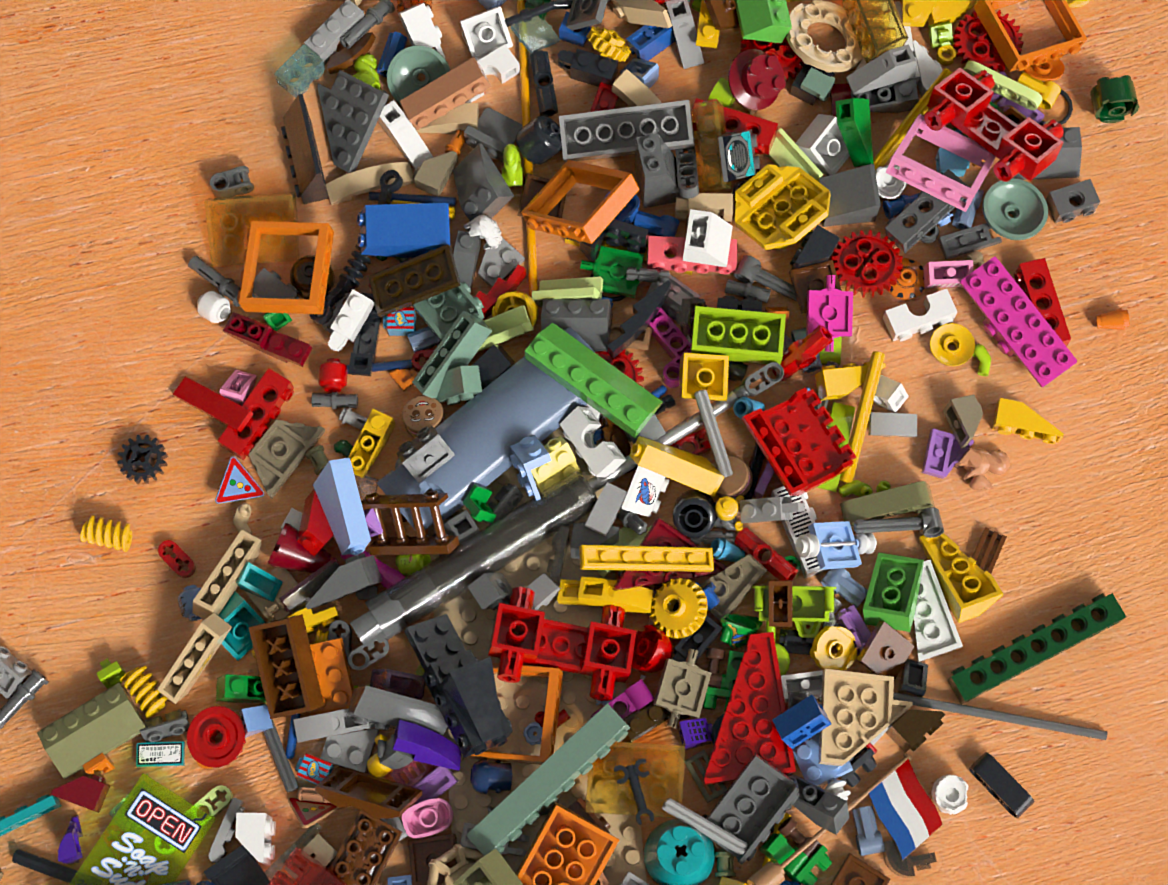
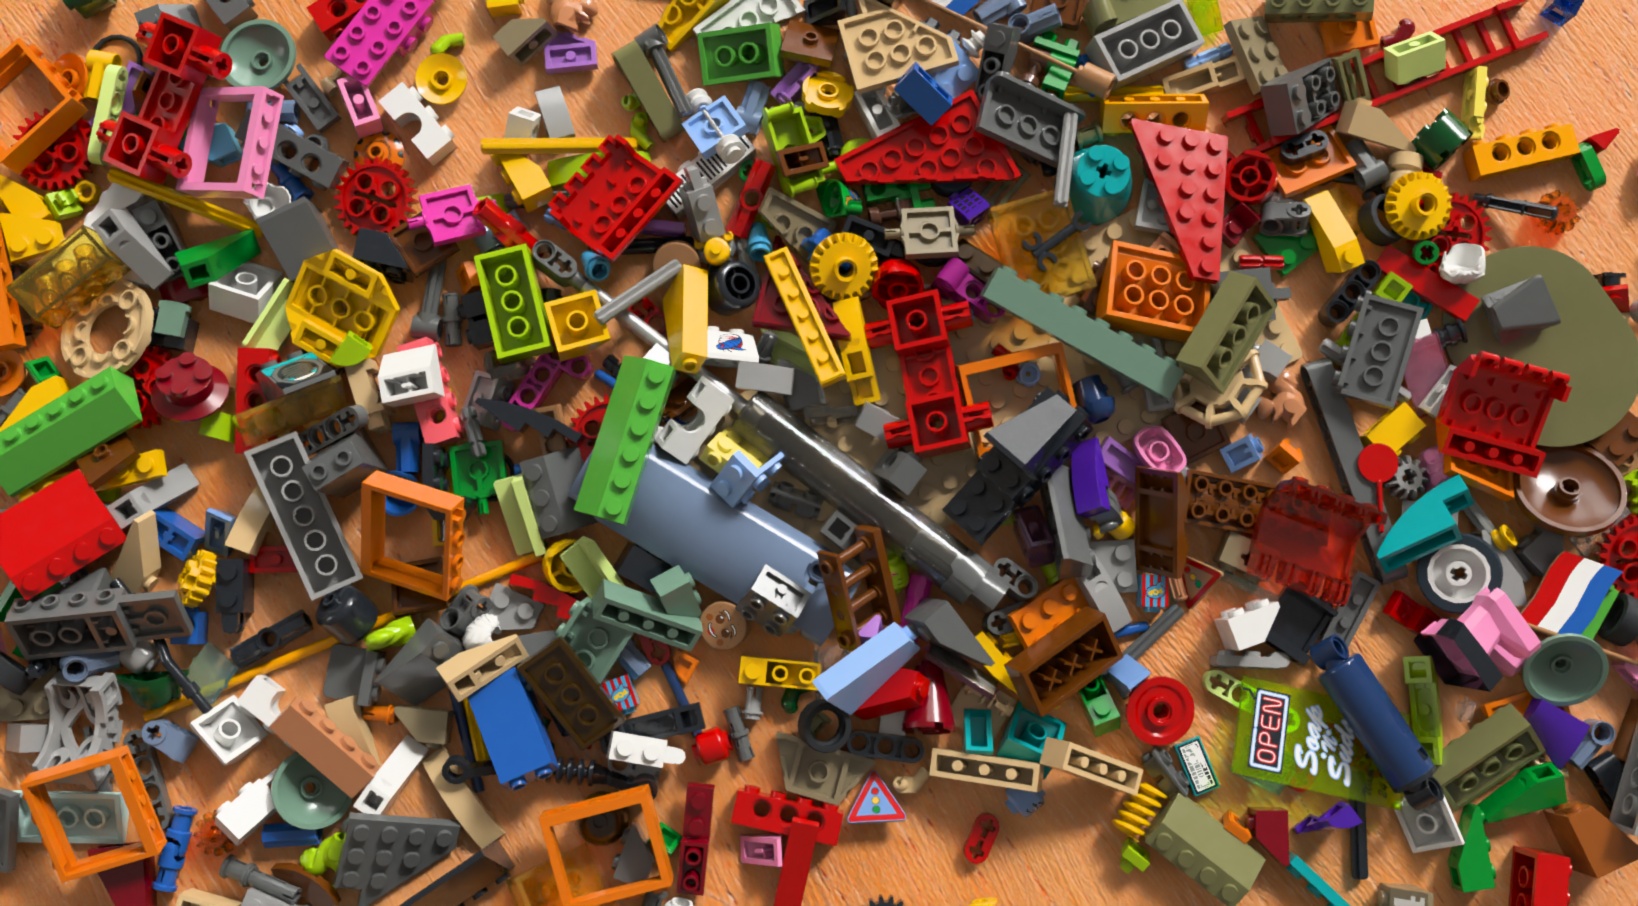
camera: 115 degrees left, 10 degrees up
(278, 497) = (895, 754): none -> black beam
(296, 458) = (838, 740): none -> black tyre
(461, 219) = (480, 665): none -> tan slope
(477, 505) = (811, 519): green bracket -> none
(510, 226) = (464, 610): none -> dark grey piece
(743, 202) = (351, 350): none -> lime brick
(840, 854) = (1036, 22): none -> sand blue piece

